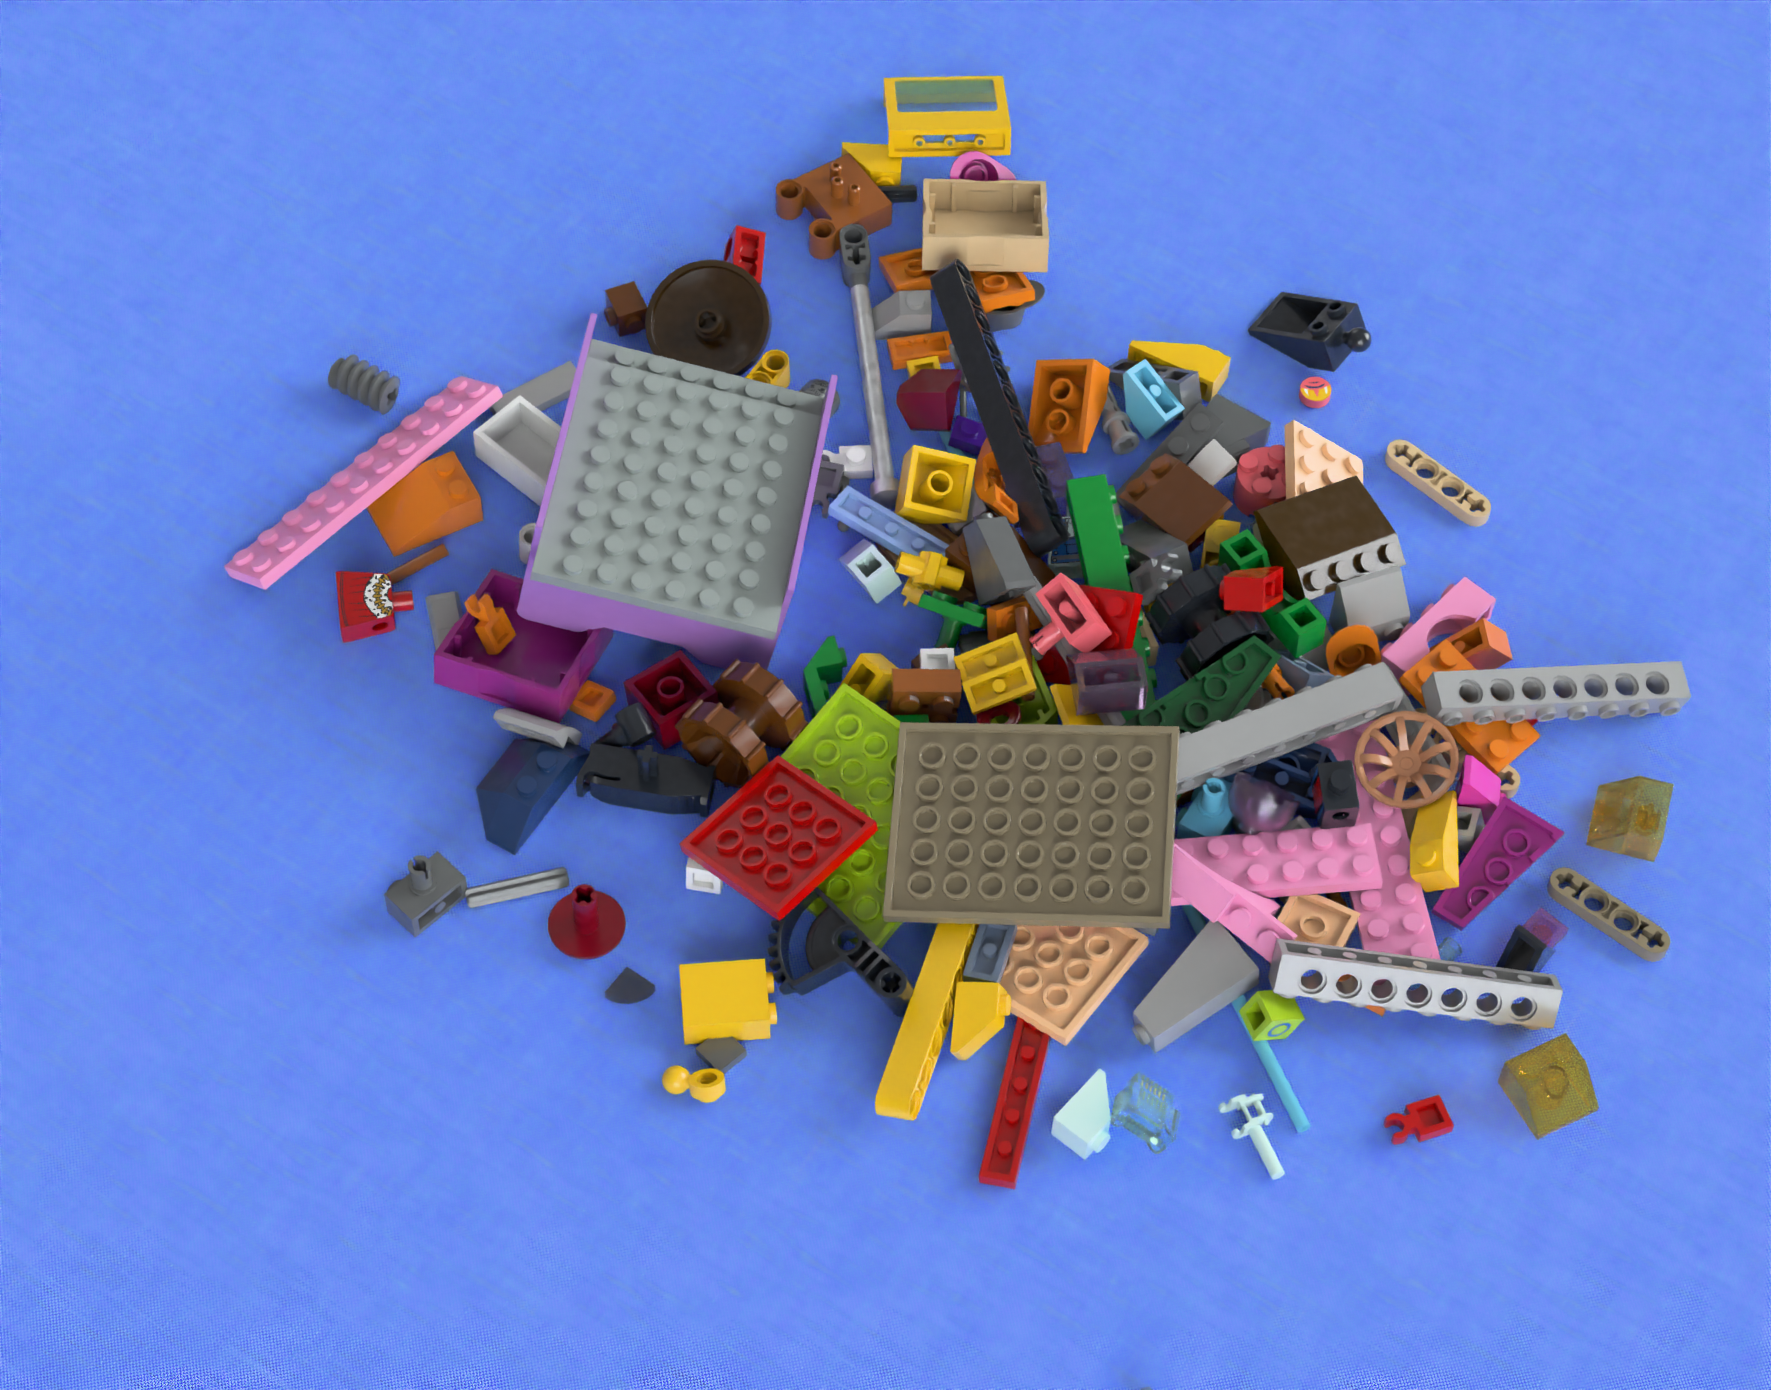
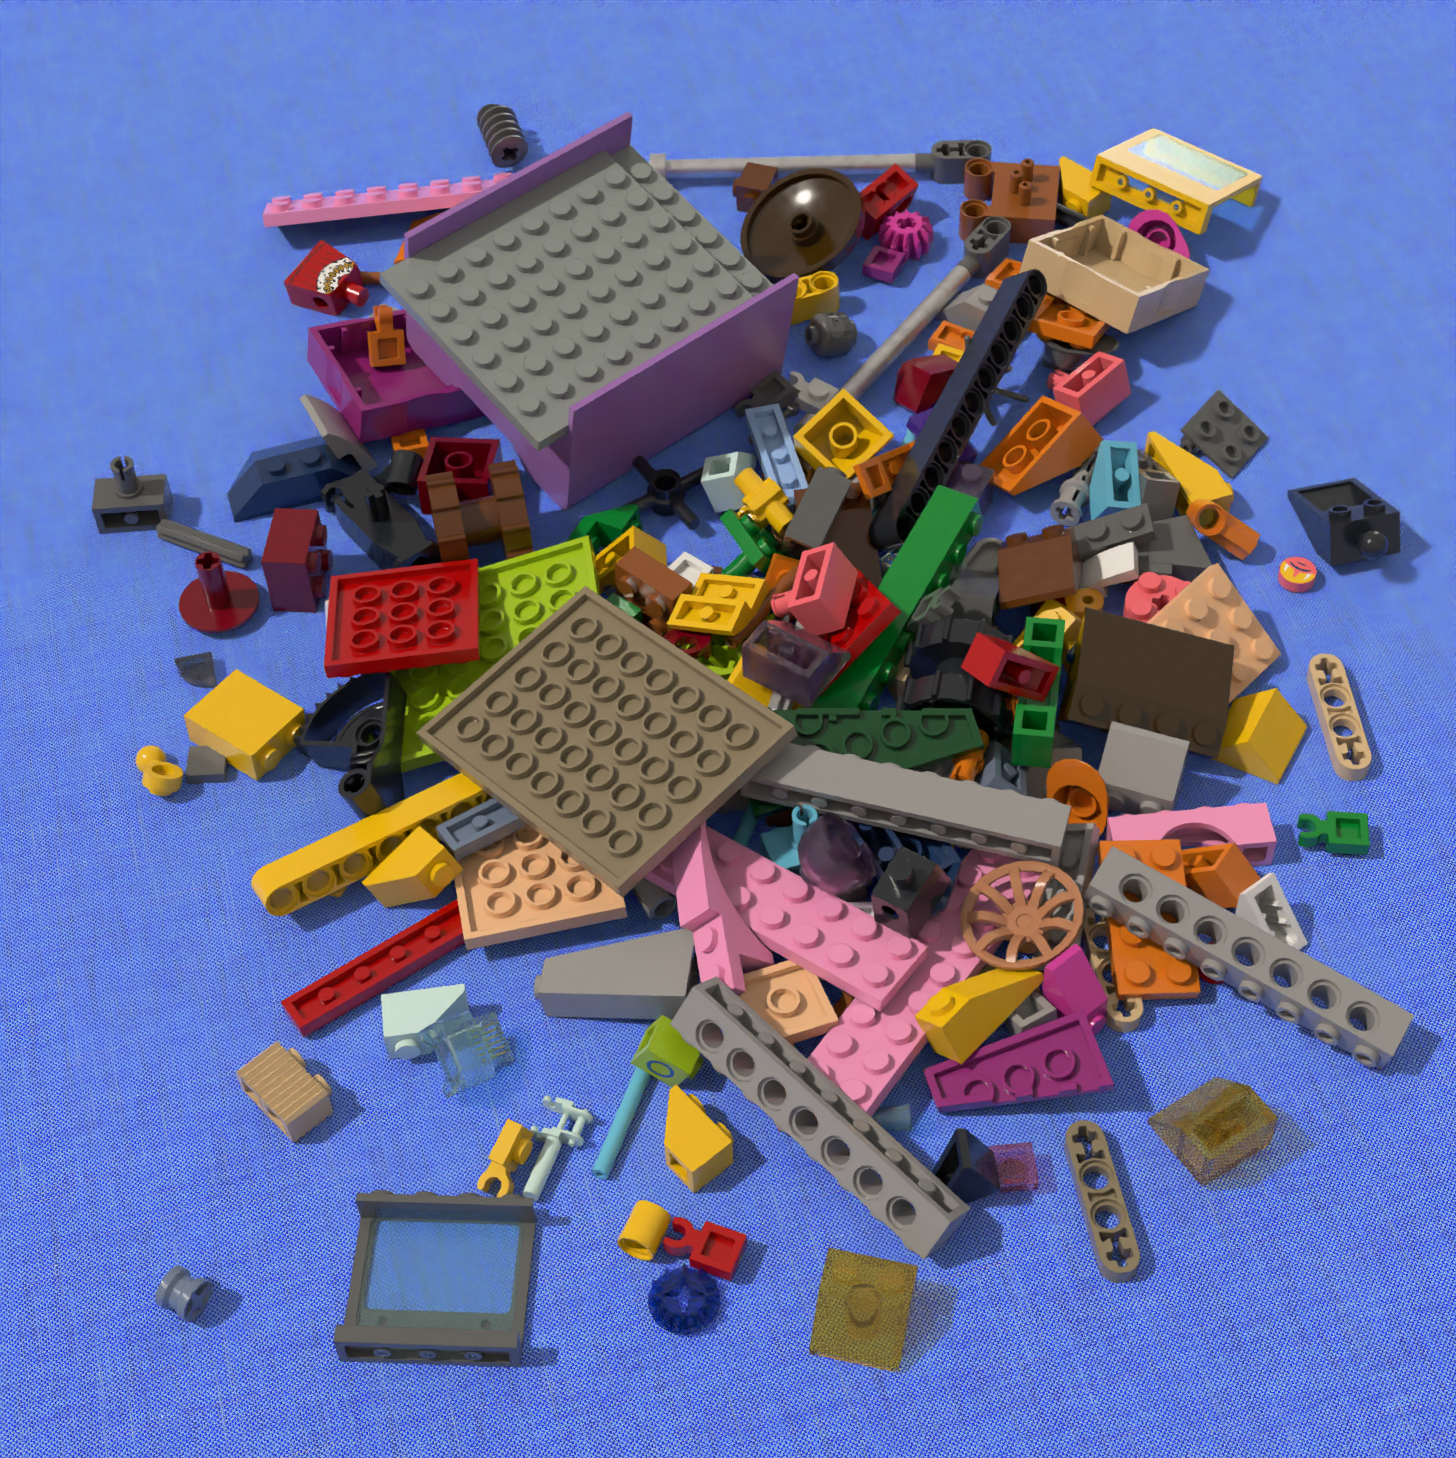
camera: 45 degrees right, 5 degrees down
(626, 849) = (296, 560): none -> dark red brick
(751, 198) = (944, 163): none -> flat silver piece
(785, 282) = (906, 234): none -> dark pink gear
(791, 317) = (883, 264): none -> magenta plate
(833, 601) = (667, 492): none -> black bar
(1052, 1230) = (286, 1091): none -> tan brick
(1053, 331) = (1093, 386): none -> coral brick
(1168, 312) = (1222, 434): none -> dark grey hinge
(1242, 1153) = (508, 1152): none -> yellow plate
(1245, 388) = (1224, 528): none -> orange piece
(1280, 1272) = (439, 1280): none -> panel
(1341, 1061) = (693, 1143): none -> yellow slope
(1373, 1140) = (644, 1230): none -> yellow beam
(1413, 527) = (1261, 735): none -> yellow slope
(1437, 1179) = (700, 1310): none -> clear blue gear
(1516, 565) = (1340, 831): none -> green plate
(1532, 650) = (1269, 910): none -> white slope

